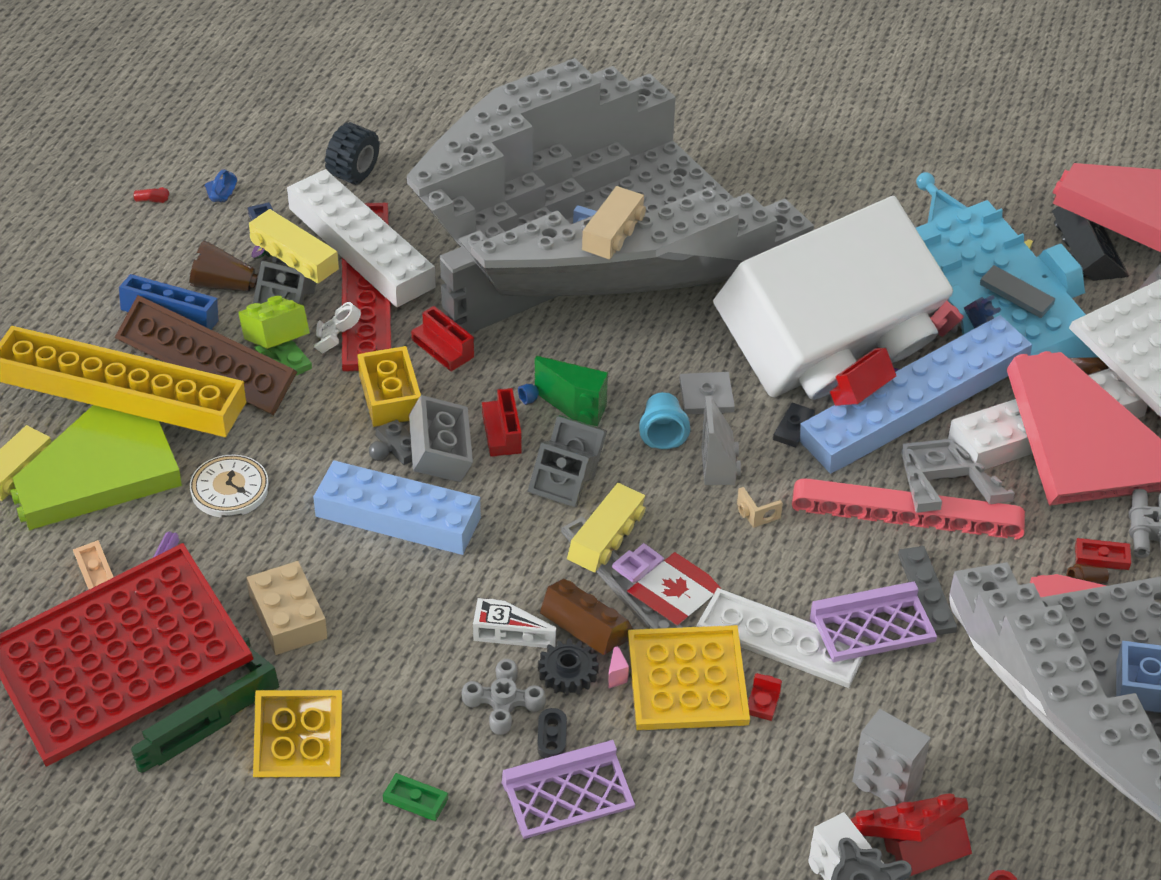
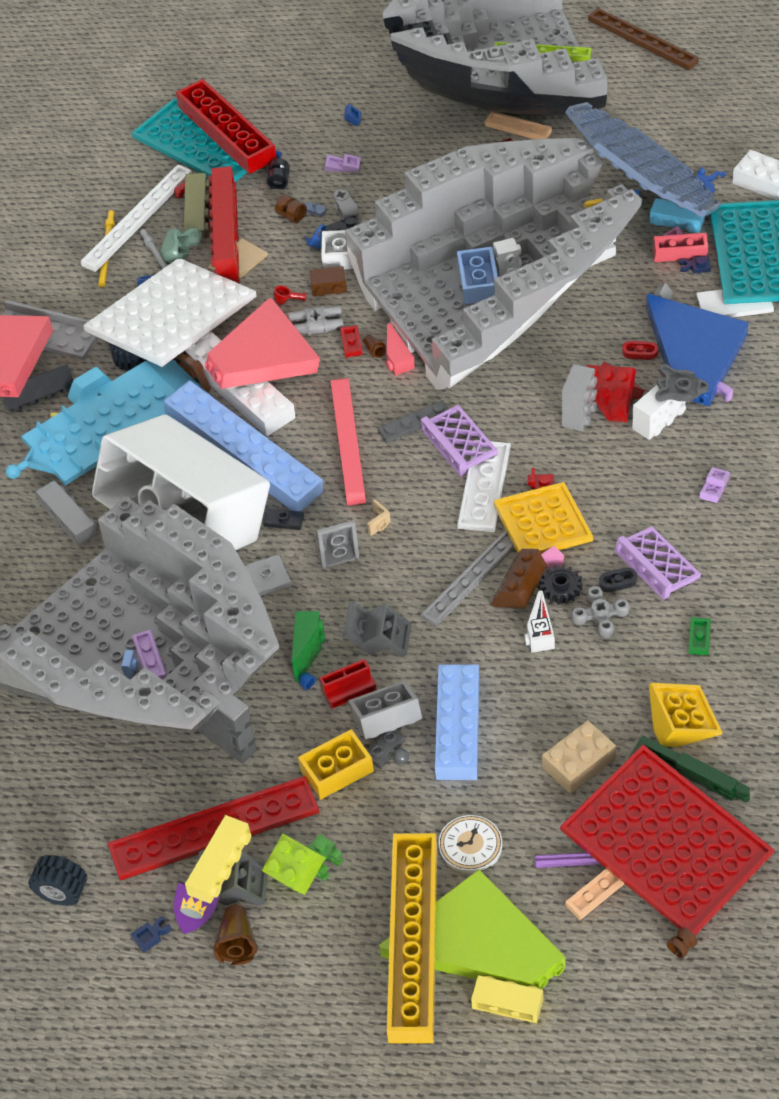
camera: 100 degrees left, 5 degrees up
(154, 195) = (141, 1040): red arm -> none
(187, 303) = (290, 956): blue brick -> none
(193, 346) = (341, 908): reddish brown plate -> none
(222, 188) = (116, 986): blue piece -> none
(344, 319) = (276, 828): white piece -> none
(361, 238) = (169, 837): white brick -> none
(444, 339) = (267, 749): red piece -> none
(606, 528) = (433, 590): light yellow brick -> none
(613, 222) = (222, 563): tan brick -> none
(637, 563) = (455, 571): lavender slope -> none
(664, 422) = (314, 585): medium azure piece -> none
(675, 588) = (465, 548): sticker -> none
(863, 378) = (262, 463): red piece -> none
(943, 460) = (300, 433): light grey wing -> none
(981, 311) = (163, 407): dark blue plate -> none
(1017, 291) = (125, 402): dark grey tile -> none

